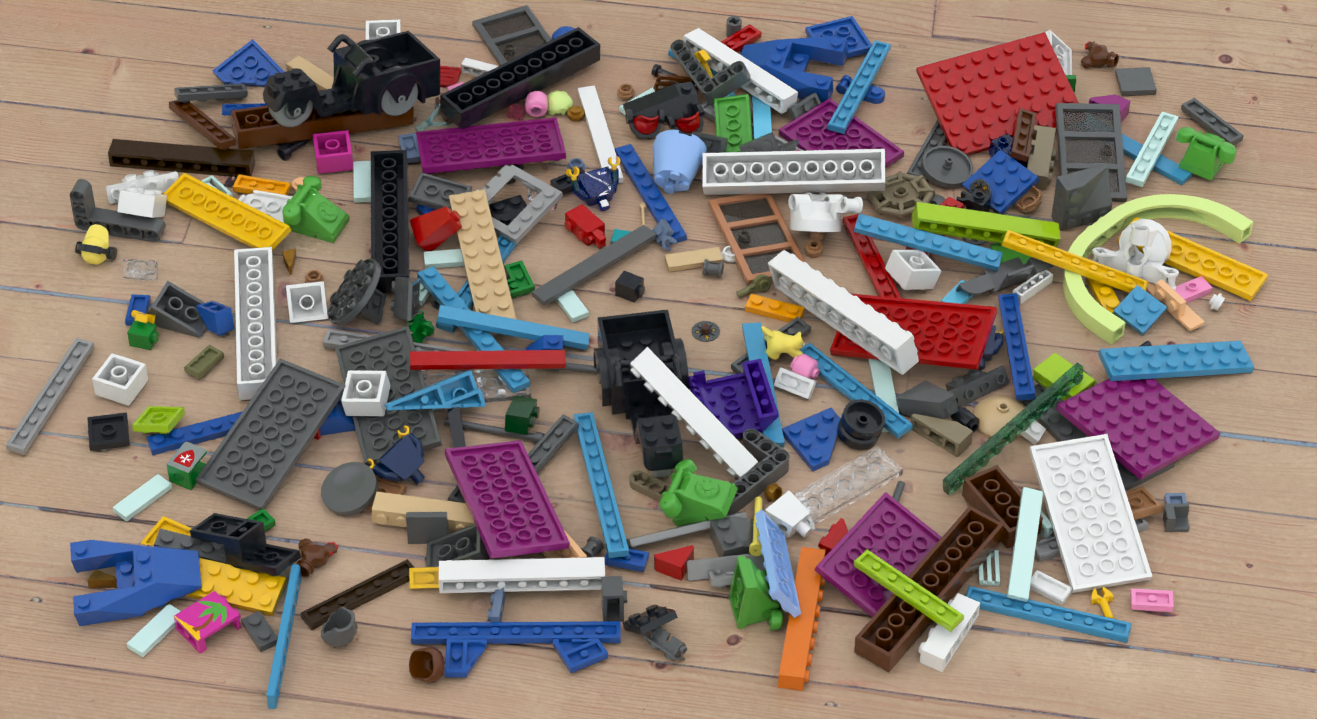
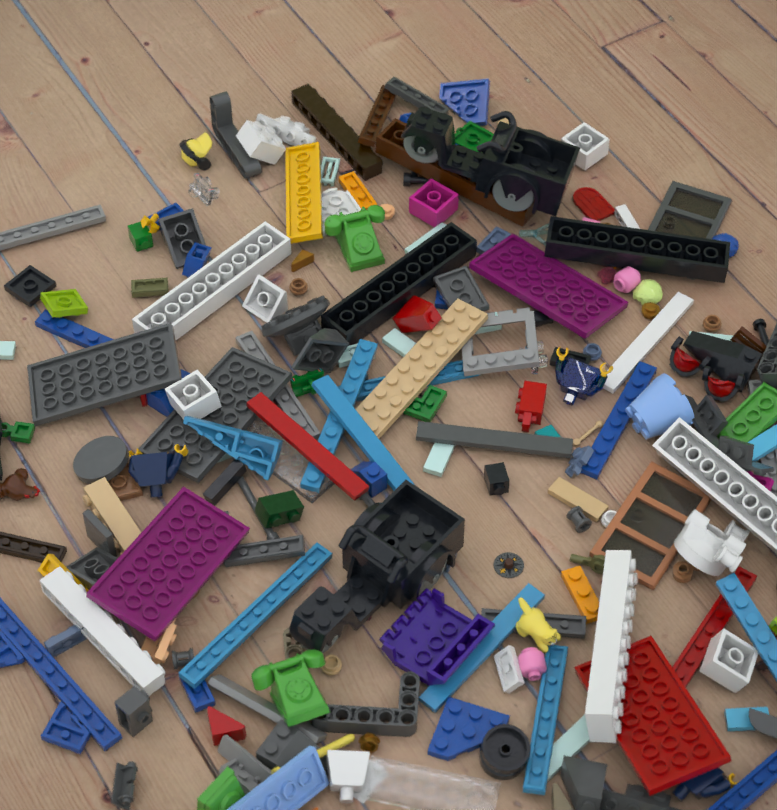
camera: 50 degrees right, 5 degrees up
(120, 379) = (81, 255): white brick -> none
(186, 465) = (33, 349): piece -> none
(507, 209) = (495, 342): black plate -> none
(649, 620) = (137, 754): black plate -> none
(693, 413) = (370, 620): white brick -> none

